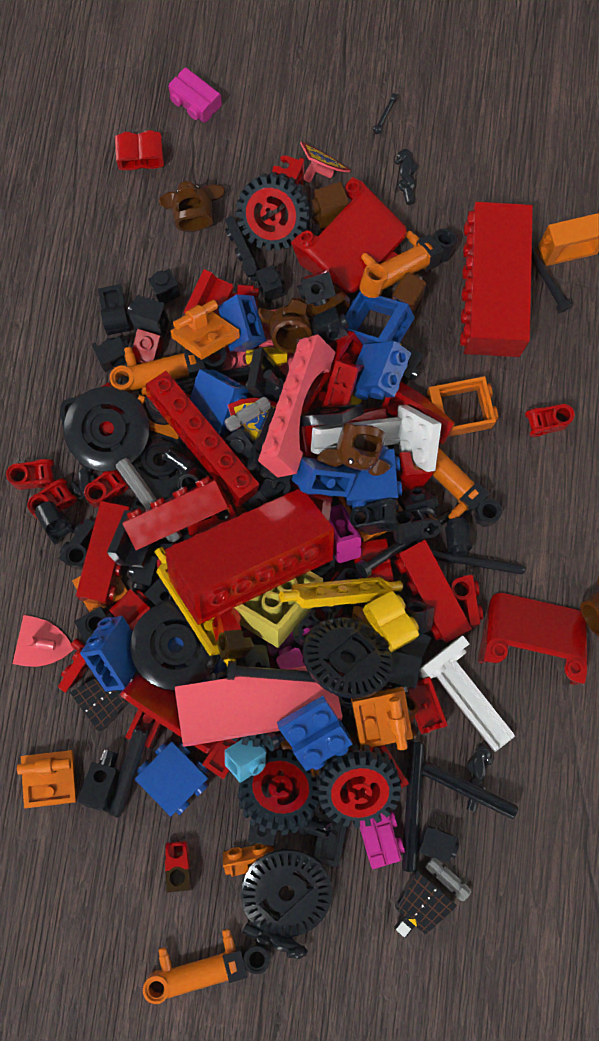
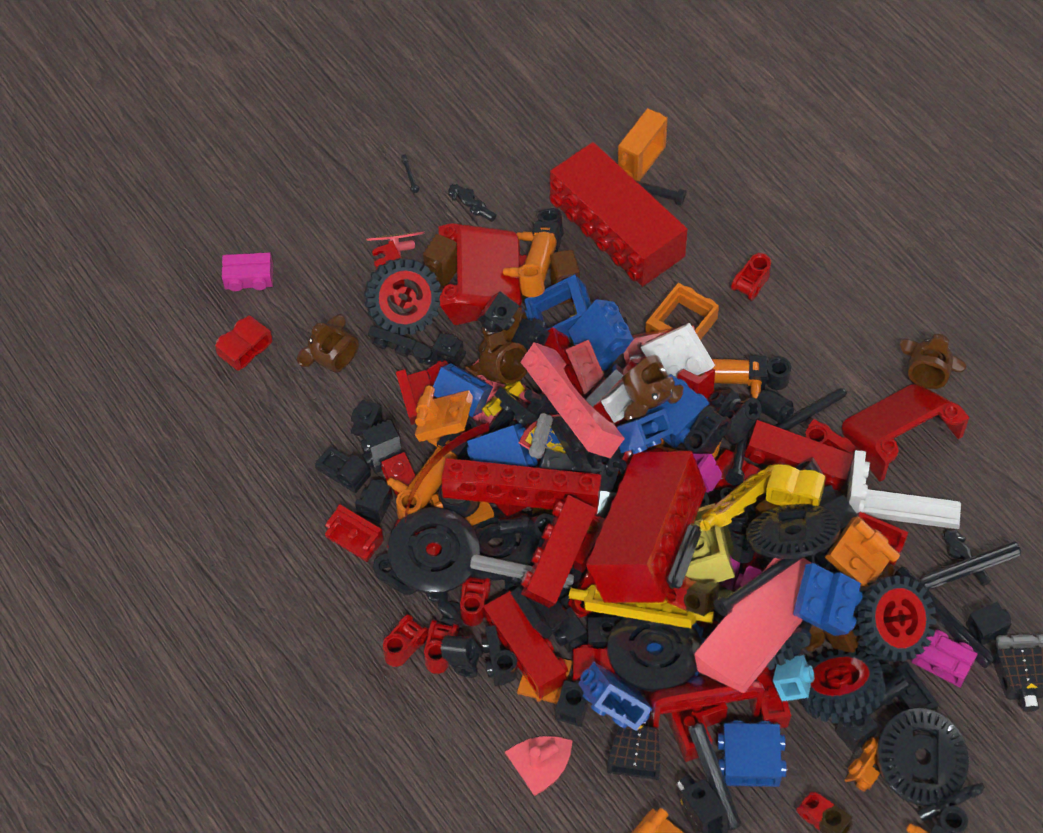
camera: 40 degrees left, 20 degrees down
(75, 364) = (354, 533): none -> red hinge
(75, 671) = (592, 730): red plate -> none
(158, 364) = (445, 450): none -> red sticker
(248, 603) = (683, 556): none -> black axle

